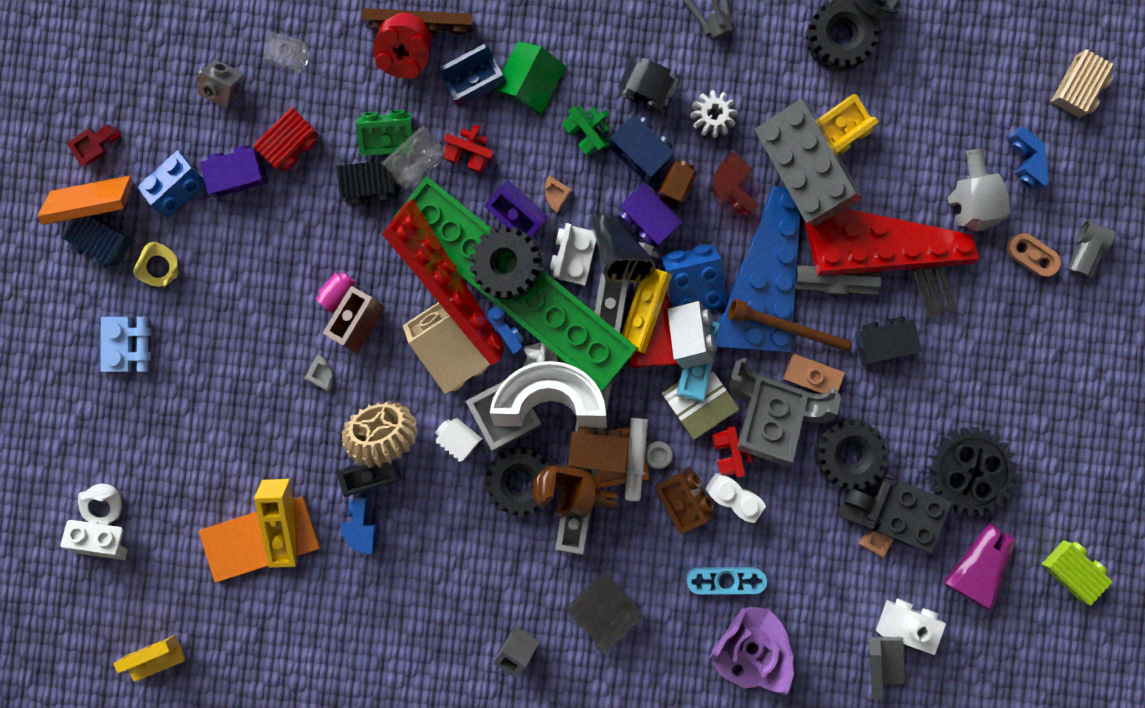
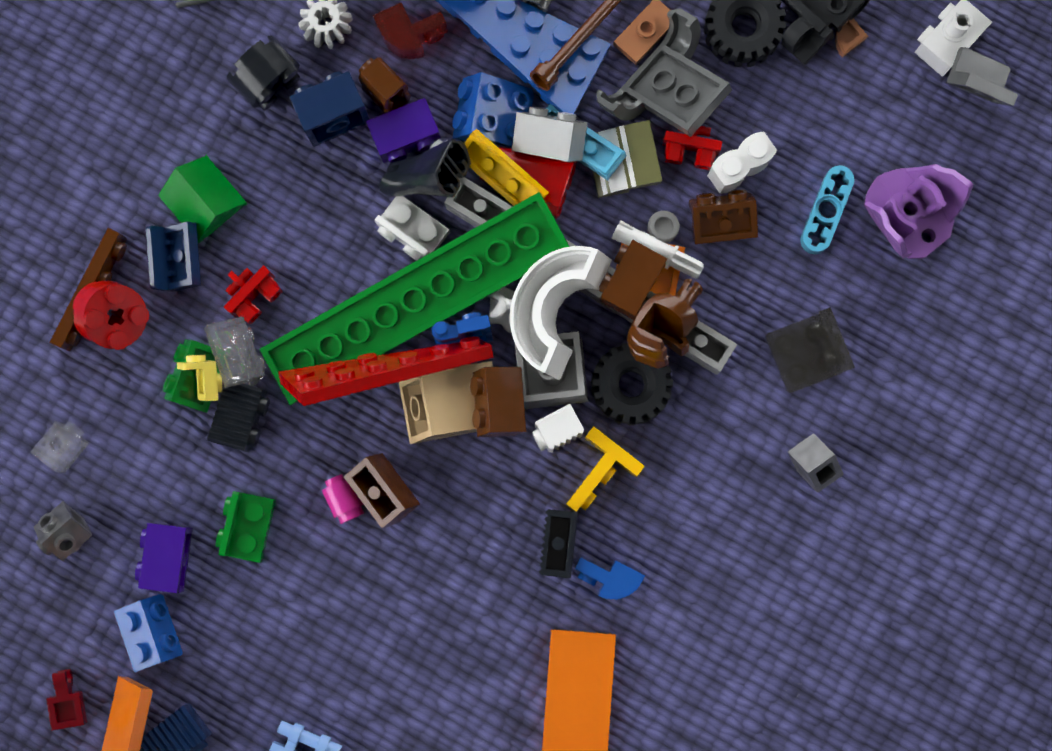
camera: 70 degrees left, 5 degrees down
(156, 249) = (211, 681): light yellow piece -> none
(277, 522) = (568, 666): yellow slope -> none
(284, 224) = (245, 526): none -> green bracket
(287, 140) = (156, 484): red brick -> none
(320, 373) = (425, 555): light grey tile -> none
(379, 433) = (517, 511): tan gear -> none
(383, 146) = (208, 380): none -> light yellow bracket
(442, 486) = (603, 470): none -> yellow bracket
(458, 383) = (498, 401): none -> reddish brown brick
(515, 209) = (339, 267): dark purple brick -> none
(527, 268) = (415, 289): black tyre -> none
(556, 193) = (338, 221): nougat tile -> none
(580, 120) = (271, 162): green hips -> none

